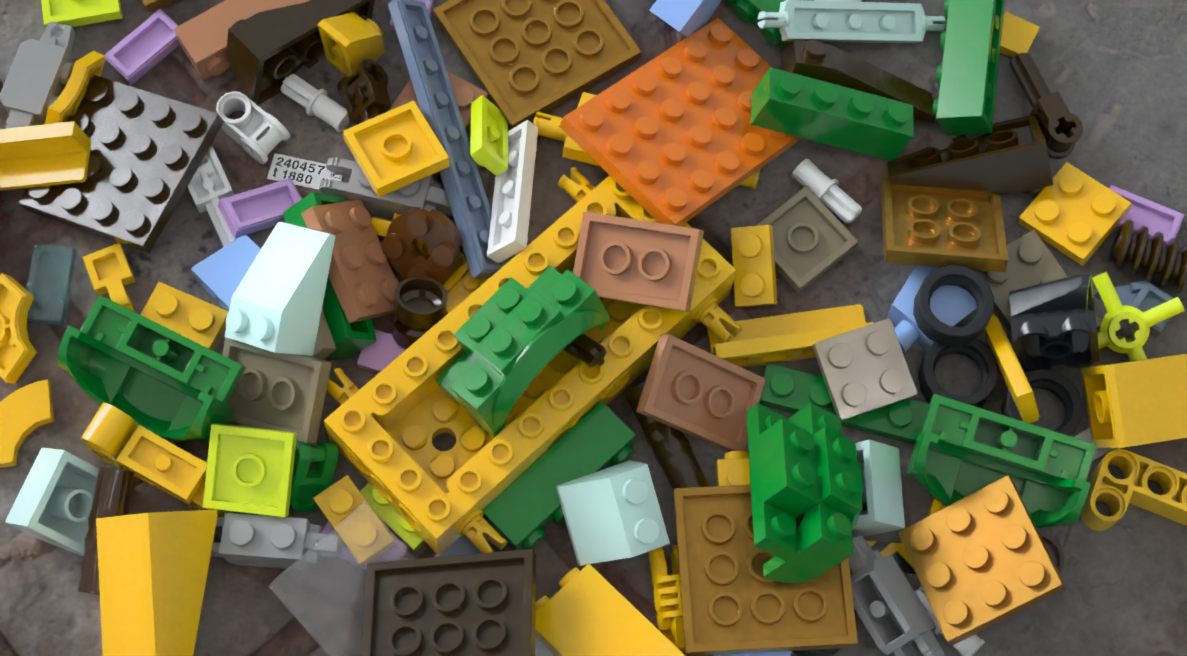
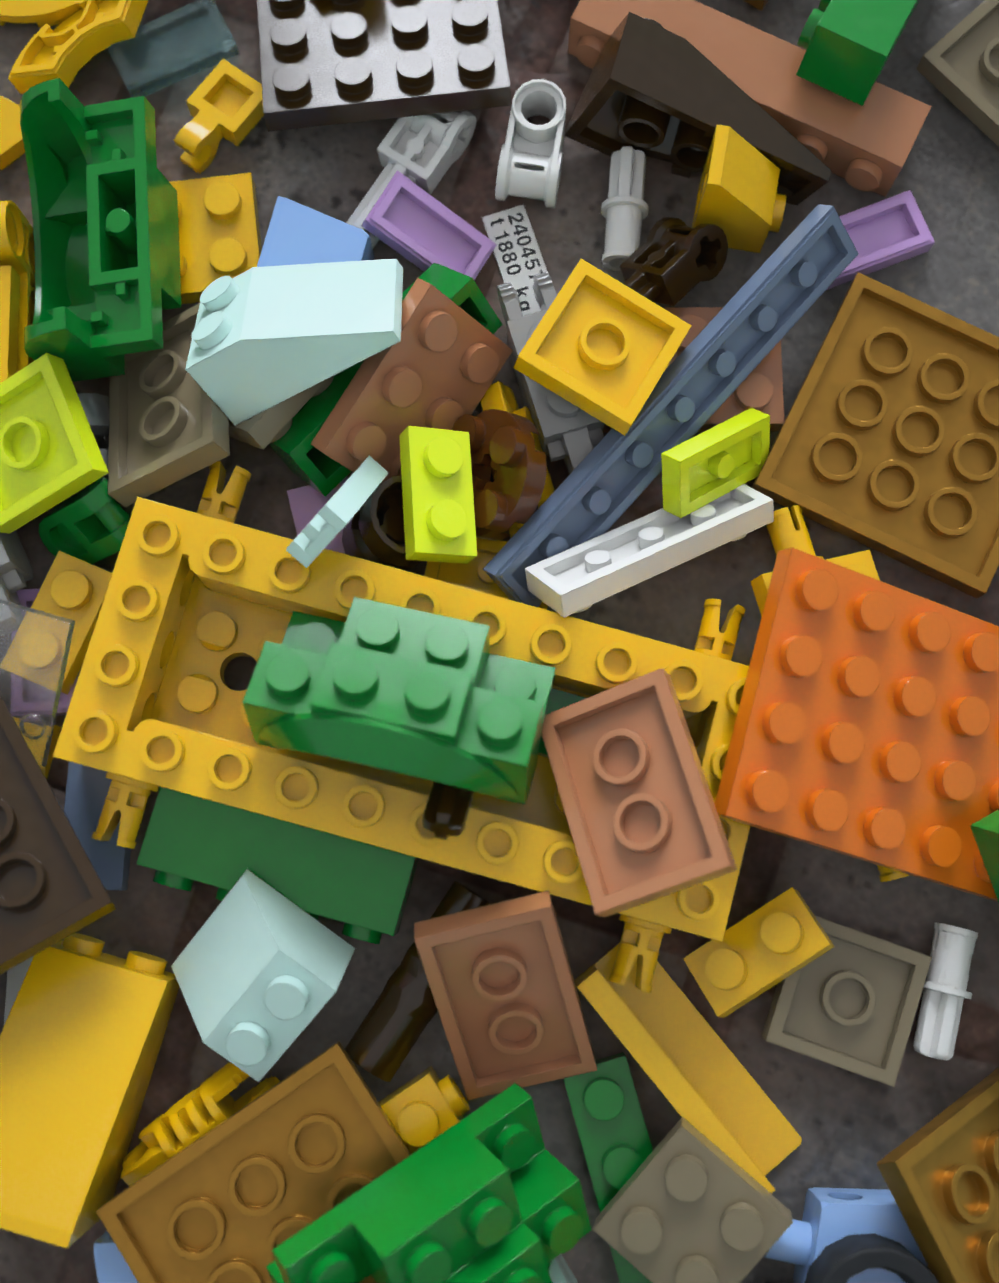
camera: 60 degrees right, 10 degrees up
(397, 330) = (337, 512): none -> light aqua tile
(420, 275) = (437, 495): none -> neon yellow plate

